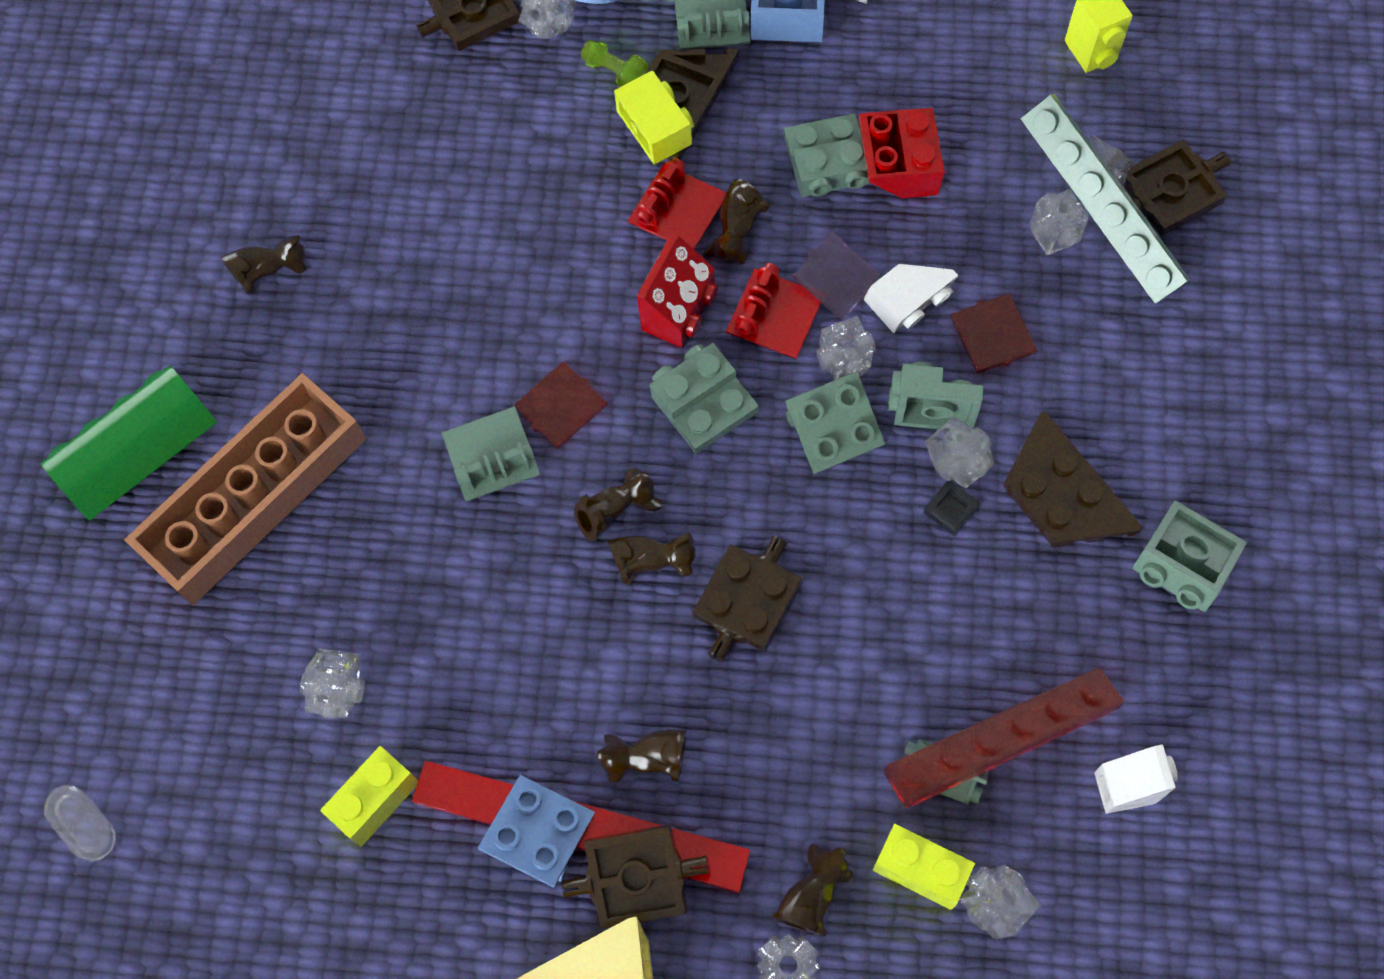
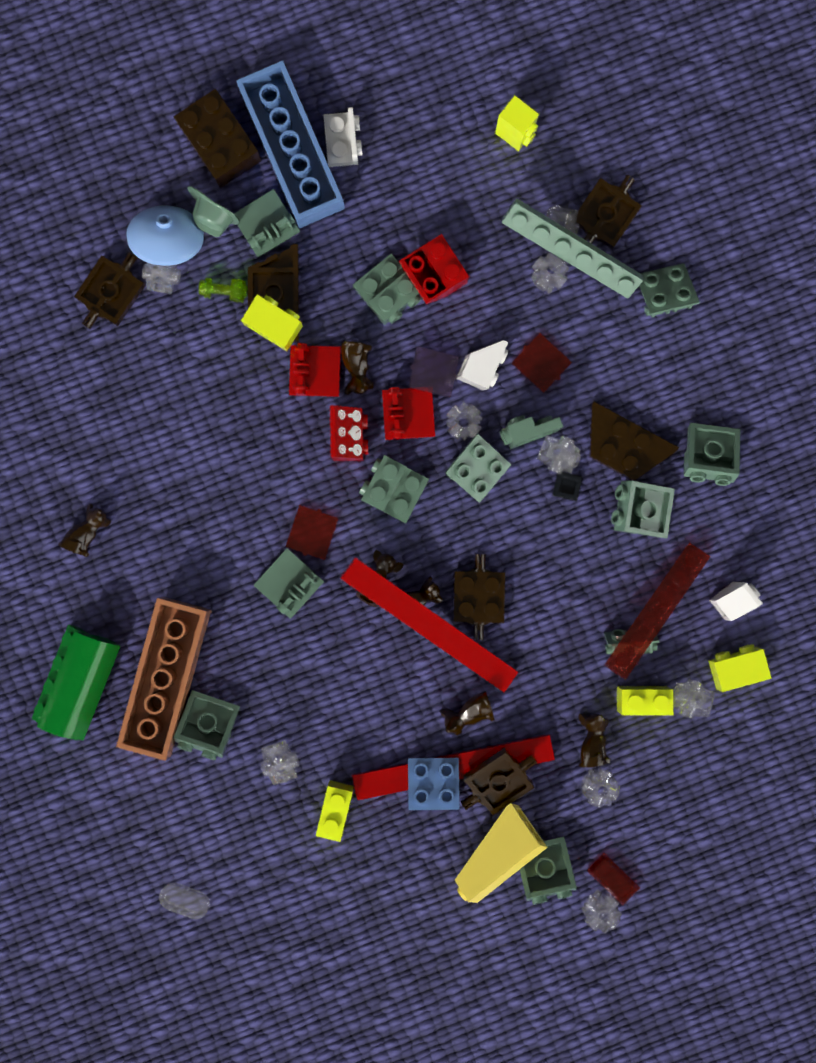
camera: 30 degrees left, 20 degrees up
(263, 584) = (206, 725): none -> sand green plate
(655, 595) = (428, 624): none -> red tile
(1050, 585) = (643, 509): none -> sand green plate
(1097, 893) = (739, 668): none -> neon yellow brick
(1216, 314) = (668, 290): none -> sand green hinge

